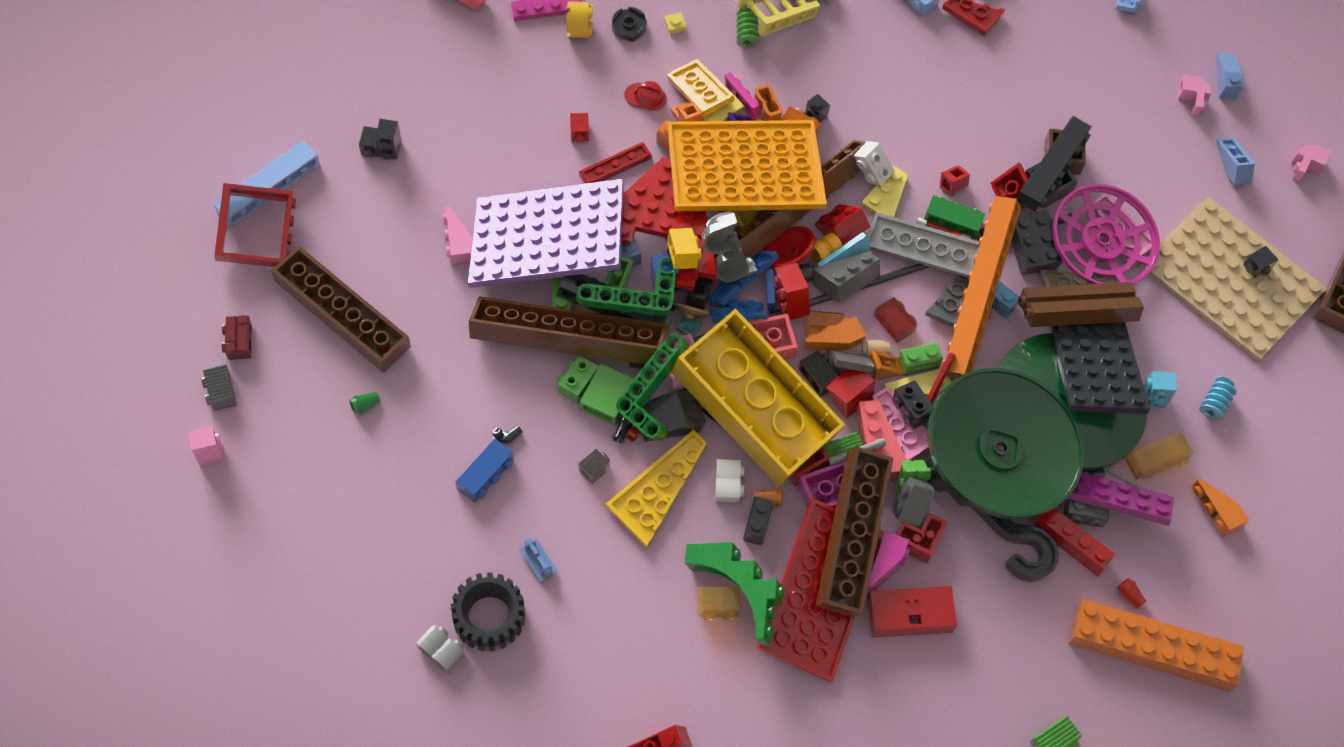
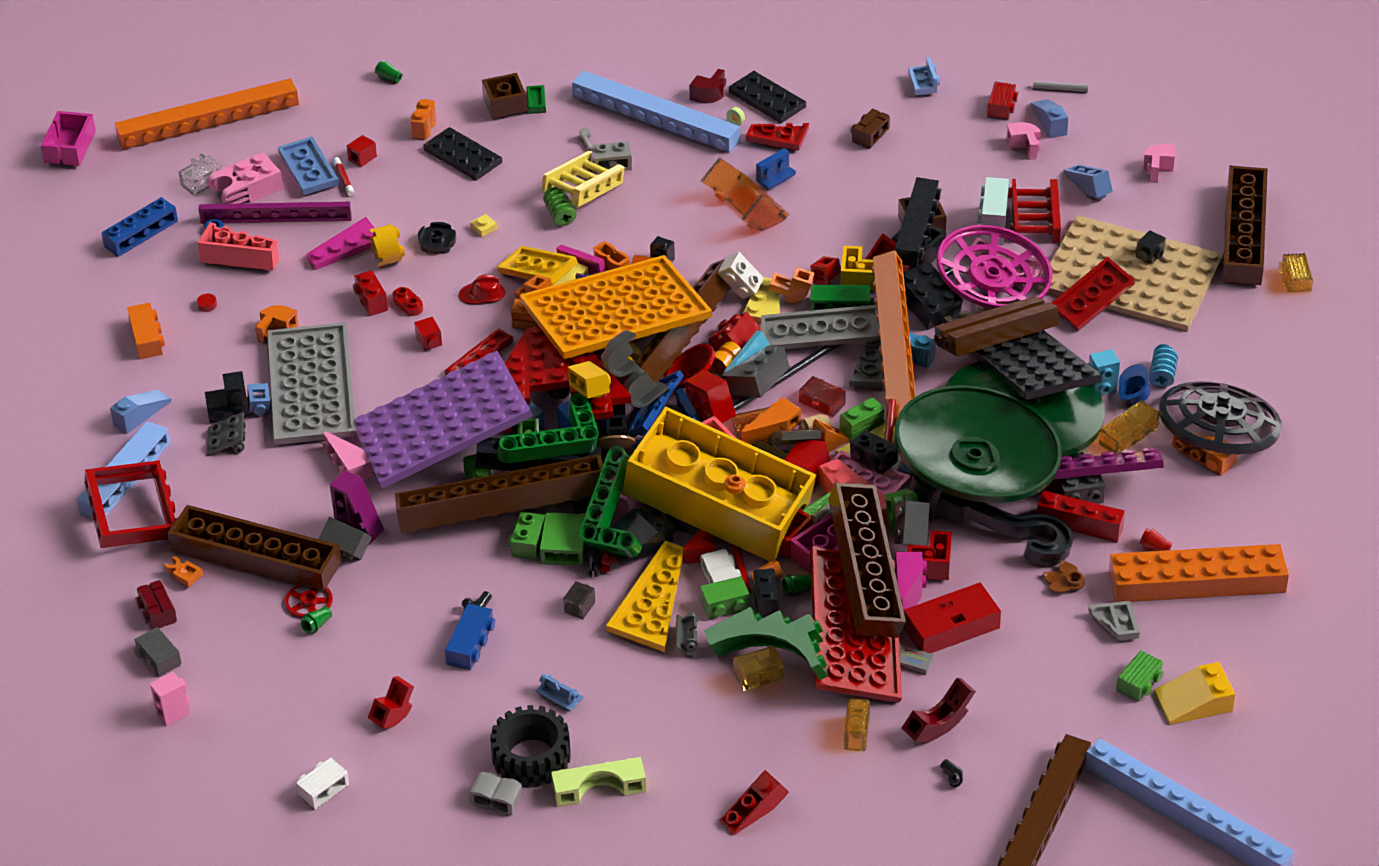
camera: 15 degrees left, 20 degrees down
(275, 310) = (184, 573): none -> orange plate
(299, 580) = (322, 783): none -> white brick
(305, 120) = (137, 408): none -> medium blue slope
(343, 39) = (146, 330): none -> orange brick
(367, 376) = (307, 599): none -> red wheel
(368, 175) = (227, 434): none -> dark grey hinge
(388, 523) = (393, 707): none -> red brick
(408, 25) = (206, 302): none -> red tile
(408, 147) = (258, 403): none -> medium blue brick
(420, 326) = (351, 540): none -> dark grey brick
(437, 301) = (354, 505): none -> magenta wedge
(455, 65) = (275, 318): none -> orange brick
(459, 145) = (311, 383): none -> light grey plate
(507, 665) = (624, 775): none -> yellowish green arch
(547, 66) = (370, 293): none -> red brick
(577, 82) = (407, 301): none -> red plate
(670, 539) = (686, 634): none -> dark grey hinge
(719, 448) = (700, 544): none -> red slope
(721, 511) = (724, 597): none -> bright green brick
(749, 485) = (741, 566): none -> red bar
(762, 417) = (734, 484): none -> orange plate
(780, 696) = (856, 724): none -> clear yellow brick
(788, 518) = (795, 584): none -> green cone
(856, 718) = (944, 716): none -> dark red arch
(862, 640) = (915, 659): none -> light grey tile
(917, 73) = (745, 195): none -> clear orange windscreen
(917, 191) = (795, 287): none -> orange brick
(953, 52) = (774, 169): none -> blue bracket
(979, 192) = (856, 269): none -> yellow brick
(1031, 599) = (1065, 579): none -> dark orange plate
(1058, 34) = (870, 128): none -> reddish brown brick
(1061, 667) = (1116, 619): none -> light grey wing
(1133, 165) = (993, 204): none -> light aqua brick
(1182, 410) = (1134, 384): none -> blue piece
(1185, 294) = (1093, 293): none -> red plate
(1189, 177) = (1051, 204): none -> red fence
(1191, 42) = (1002, 100): none -> red brick
(1244, 481) = (1223, 412): none -> black dish
(1250, 43) = (1060, 86): none -> light grey bar

